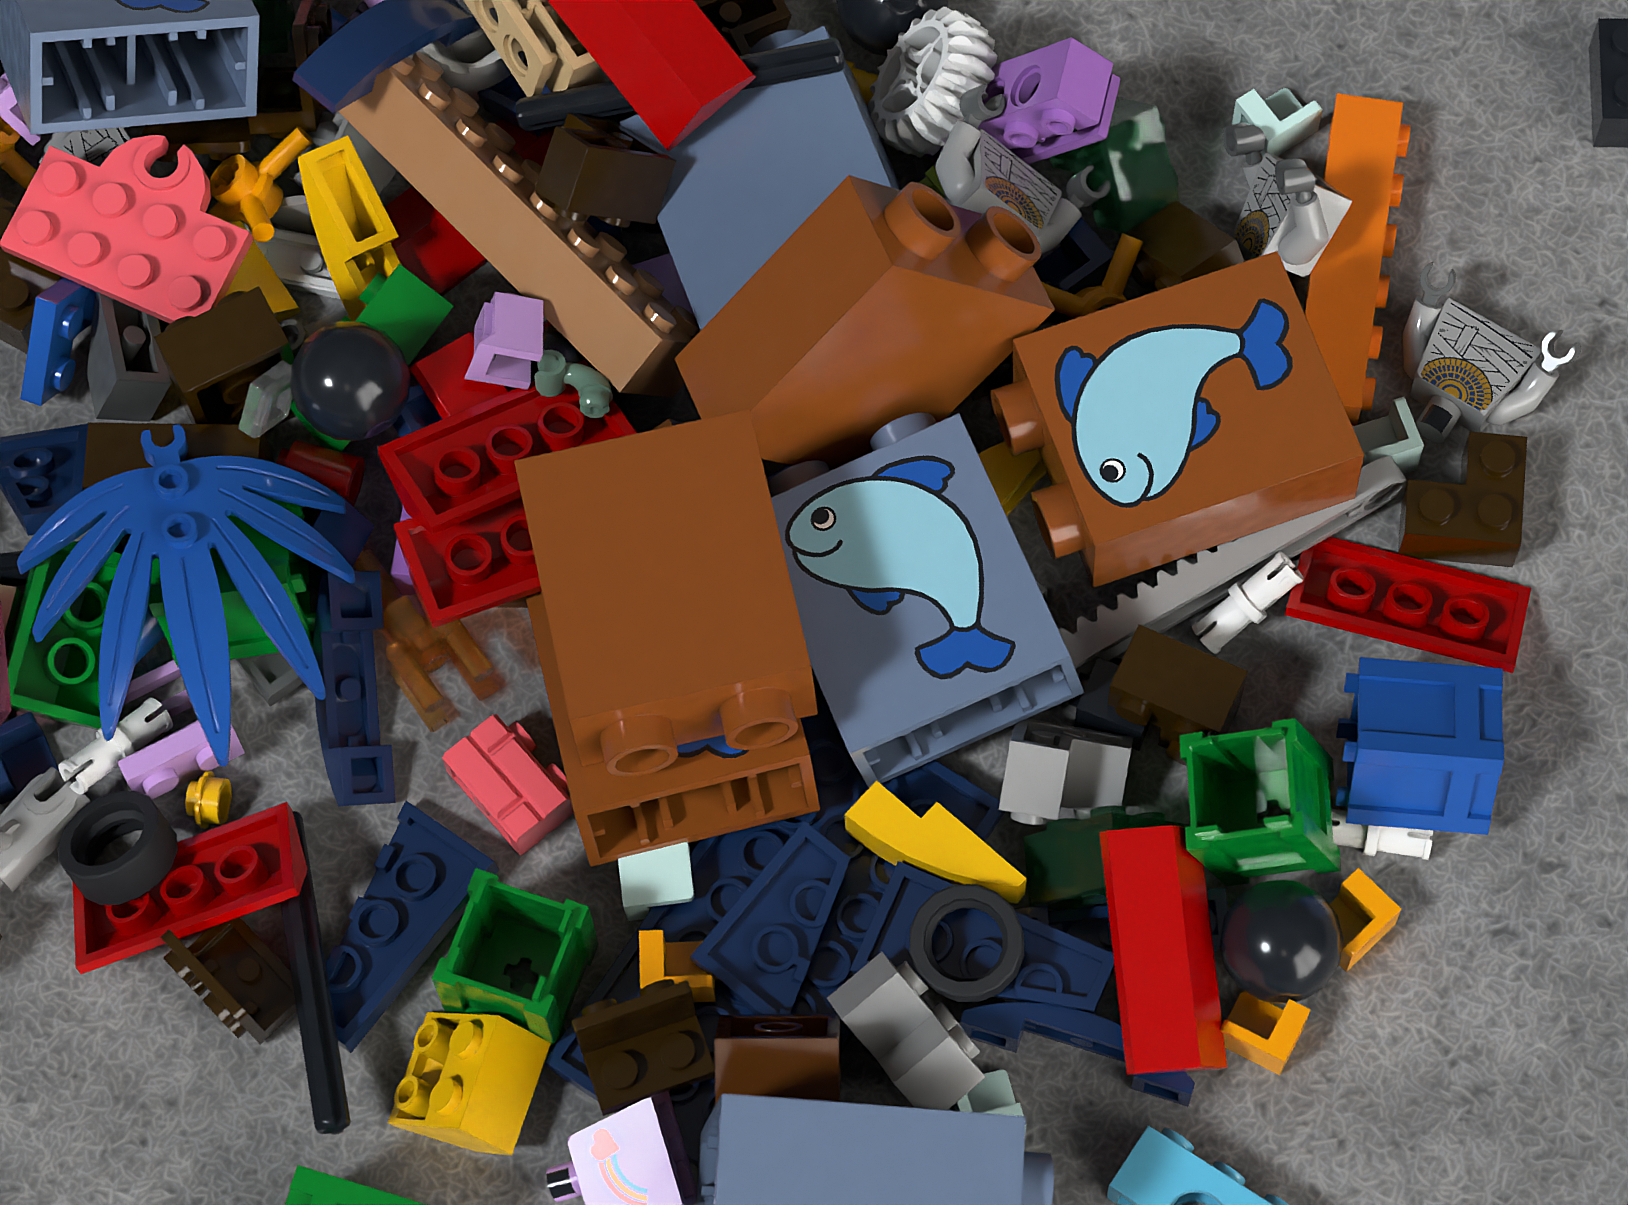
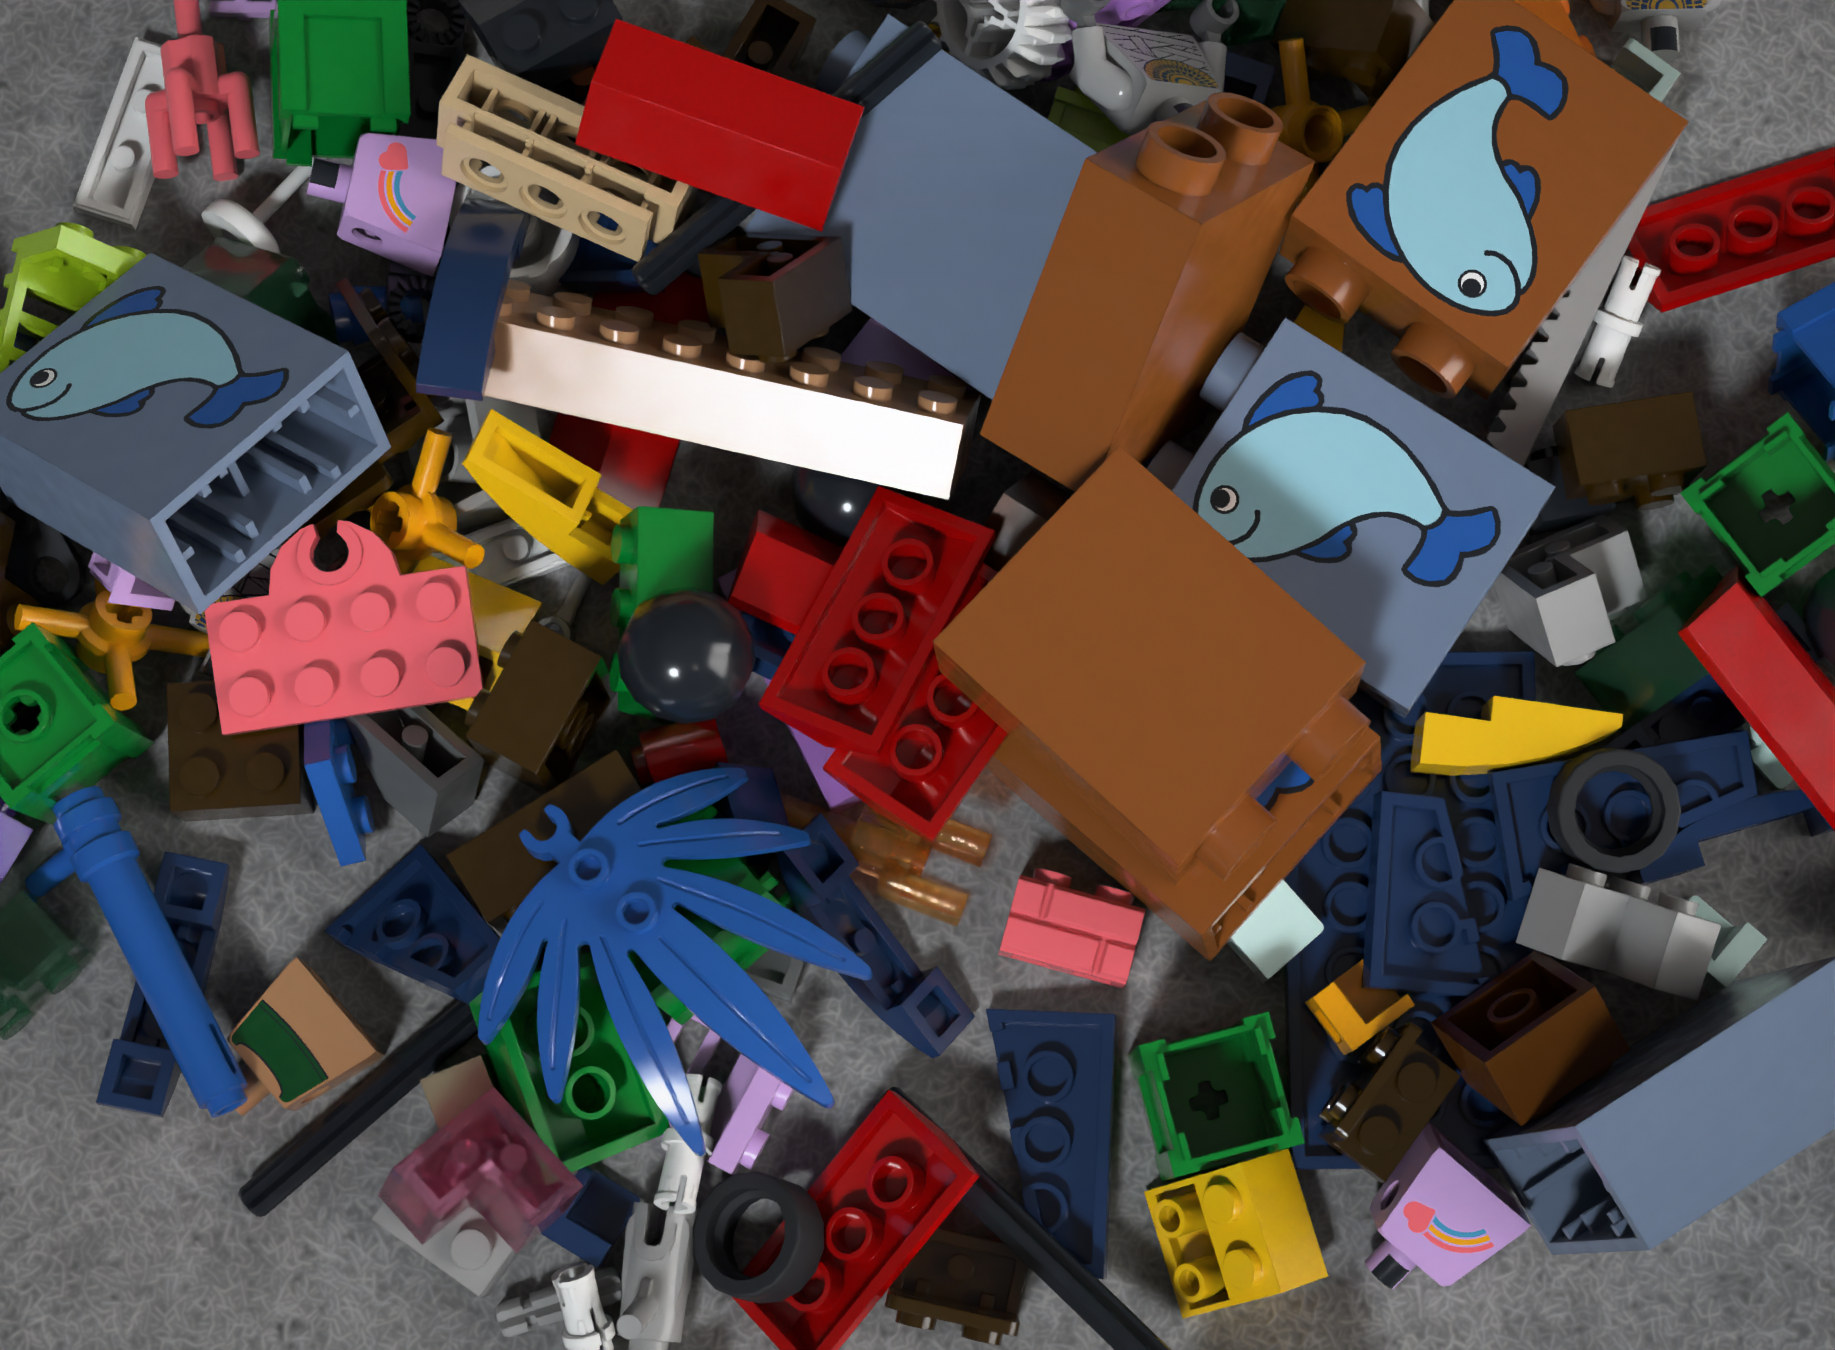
camera: 40 degrees left, 10 degrees up
(209, 800) = (802, 1131): yellow plate -> none
(267, 401) = (612, 722): clear tile -> none
(507, 340) = (806, 515): lavender window -> none
(591, 385) = (911, 508): sand green arm -> none
(1470, 519) = (1760, 103): dark brown brick -> none

